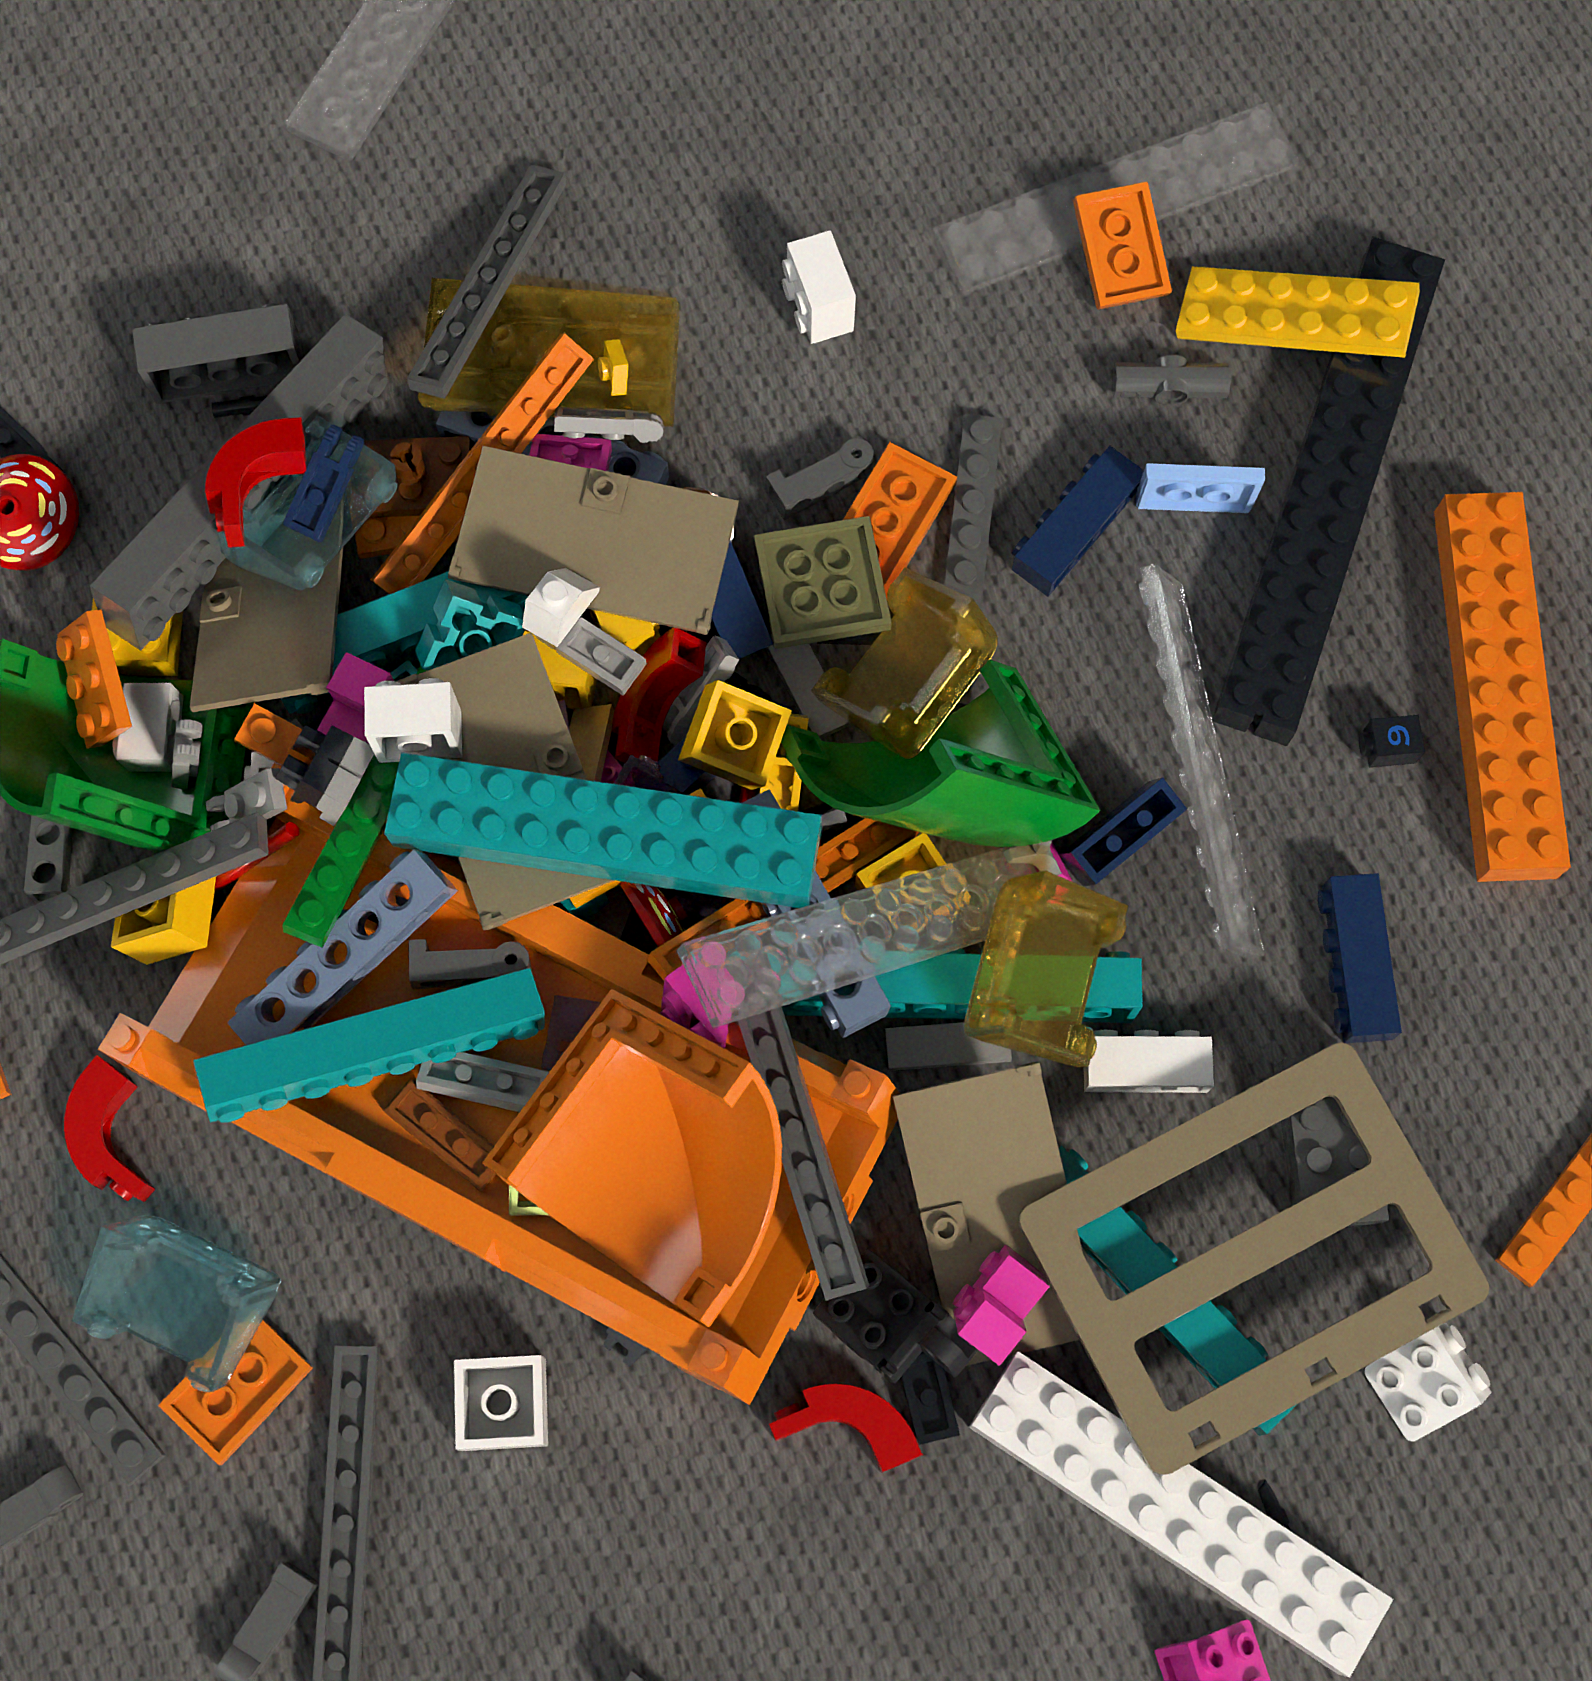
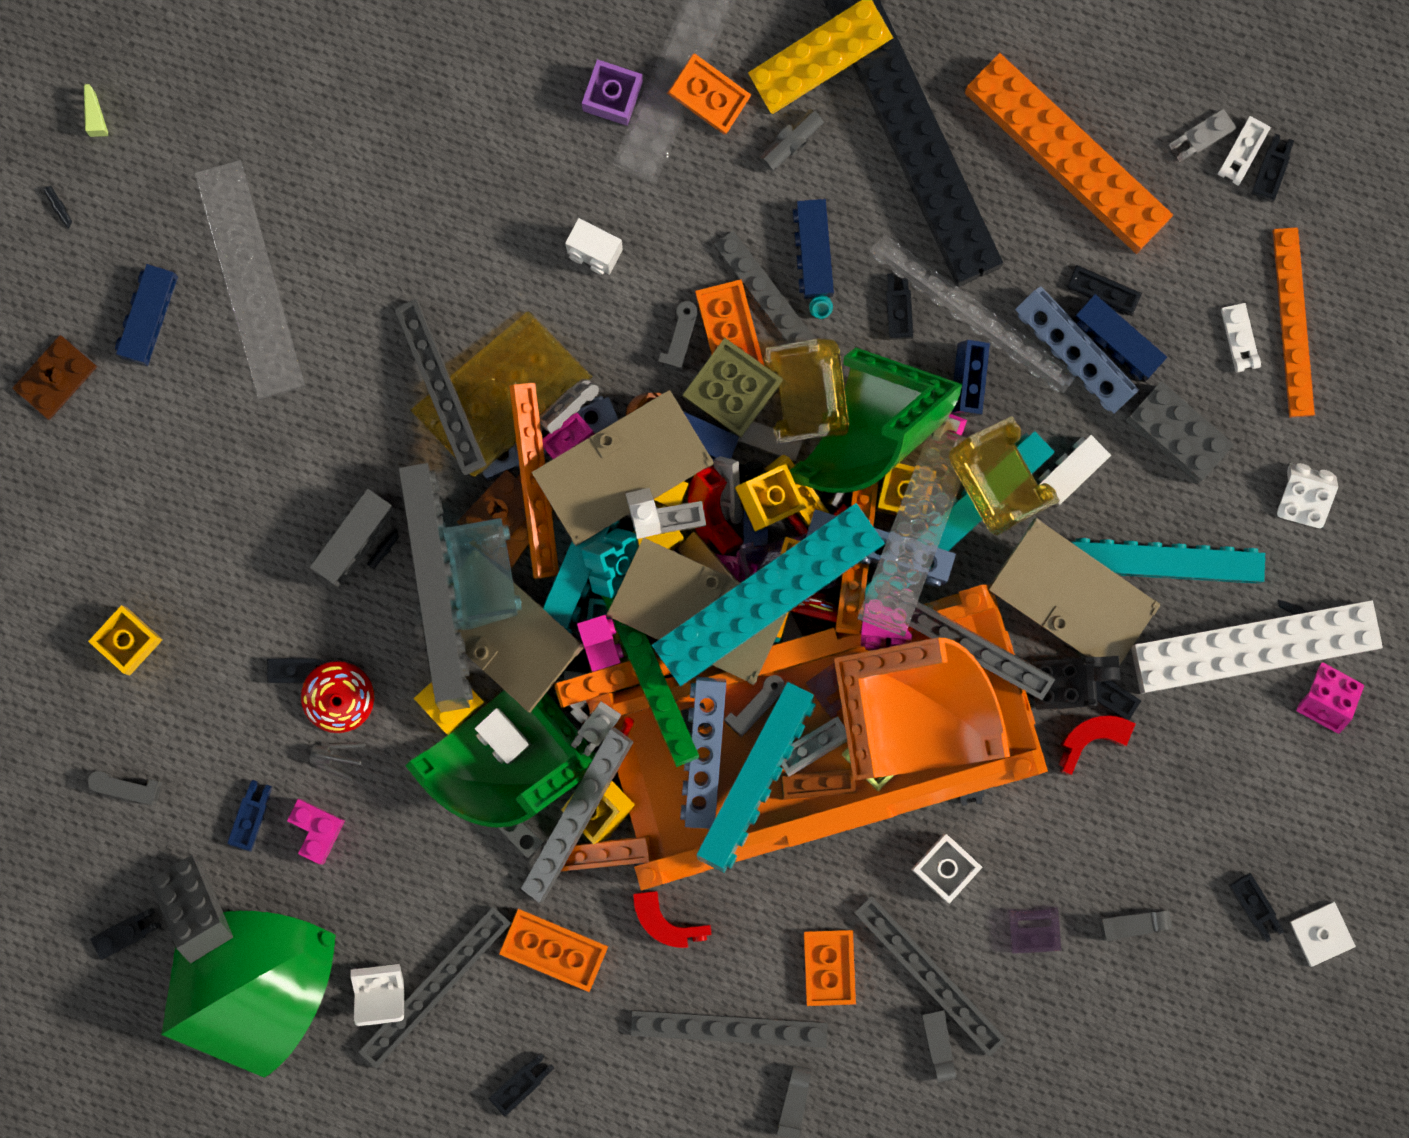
camera: 45 degrees left, 10 degrees up
(93, 679) = (463, 739): orange plate -> none
(118, 977) = (609, 853): none -> orange plate
(175, 1295) = (771, 955): clear light blue windscreen -> none
(186, 753) = (539, 733): light grey hinge -> none
(244, 461) = (441, 574): red arch -> none
(323, 486) = (480, 559): dark blue hinge -> none
(333, 773) = (623, 682): black hips -> none
(413, 720) = (641, 625): white brick -> none
(524, 1610) = (1034, 938): none -> clear purple plate
(614, 367) = (543, 376): yellow plate -> none
(938, 1047) = (975, 550): light grey tile -> none
(994, 1307) = (1110, 634): dark pink brick -> none
(1010, 149) = (612, 92): none -> medium lavender brick
(1022, 592) = (821, 306): none -> teal plate
(1112, 1327) = (1251, 558): dark tan door -> none
(1113, 680) = (899, 310): none -> black hinge
(1199, 488) = (856, 184): light blue tile -> none
(1307, 1019) = (1089, 352): none -> sand blue brick
(1392, 741) = (1045, 224): black brick -> none
(1400, 892) = (1109, 291): none -> black tile
(1521, 1100) = (1240, 337): none -> white plate

